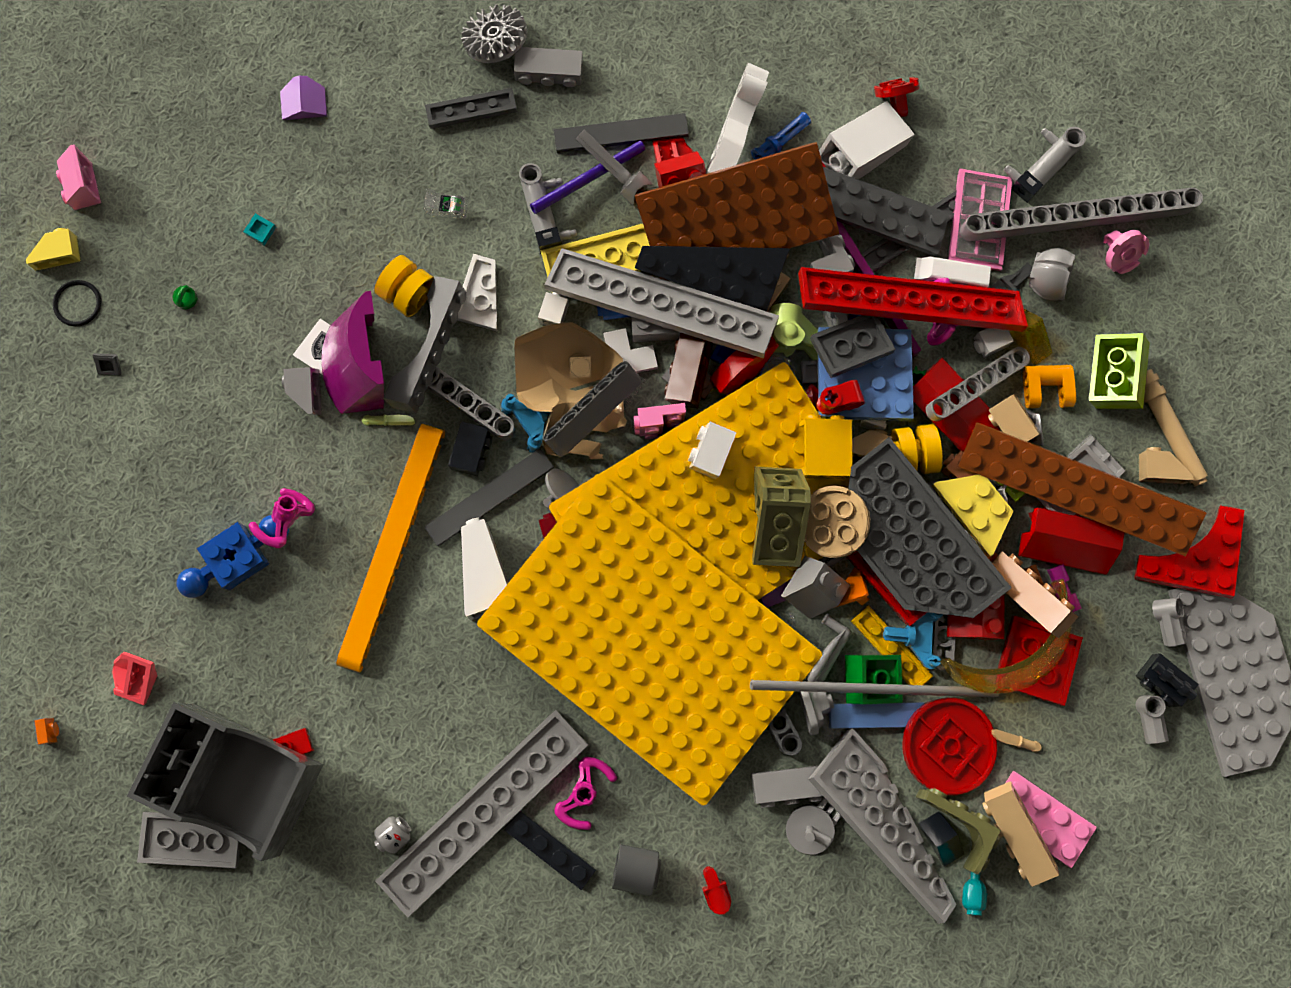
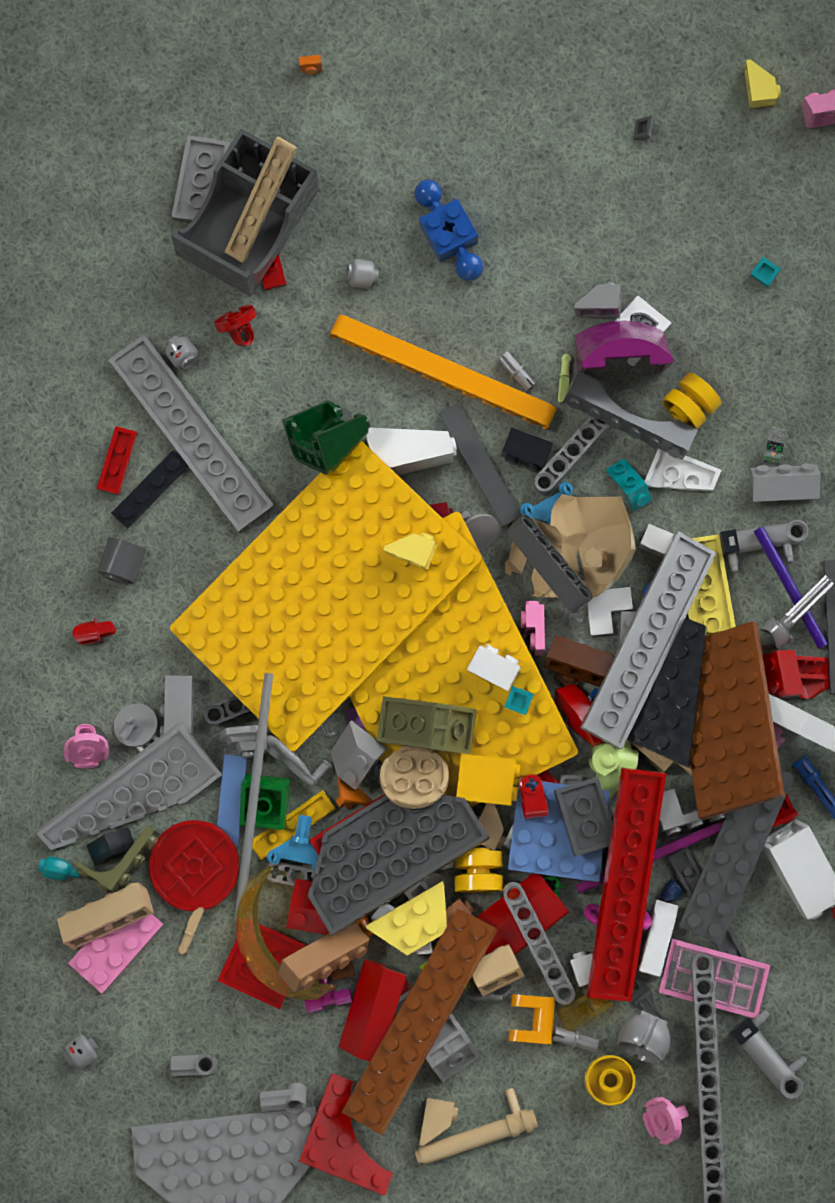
camera: 105 degrees right, 0 degrees up
(65, 286) = (712, 84): black tyre -> none
(133, 677) = (348, 139): coral slope -> none
(185, 297) = (703, 200): green tile -> none
(210, 761) = (260, 199): none -> tan tile
(284, 514) = (480, 276): dark pink piece -> none
(288, 645) = (361, 274): none -> light grey head
(353, 776) = (236, 322): none -> red tile
(385, 468) = (516, 371): none -> light grey axle
(480, 660) = (322, 438): none -> dark green windscreen
(481, 190) = (785, 482): none -> light grey brick
(494, 342) = (630, 483): none -> teal bracket
(521, 891) = (117, 460): none -> red plate
(562, 807) = (194, 516): dark pink piece -> none
(598, 544) = (413, 549): none -> light yellow slope
(742, 422) = (519, 700): none -> teal plate
(847, 881) = (86, 748): none -> bright pink tile
(902, 266) = (671, 891): none -> dark blue hose
(1060, 343) = (575, 1039): none -> light grey axle
(1098, 304) = (609, 1080): none -> yellow wheel
(1119, 371) = (537, 1088): lime brick -> none
(1162, 841) = (80, 1052): none -> light grey head
(1167, 681) = (228, 1084): black brick -> none

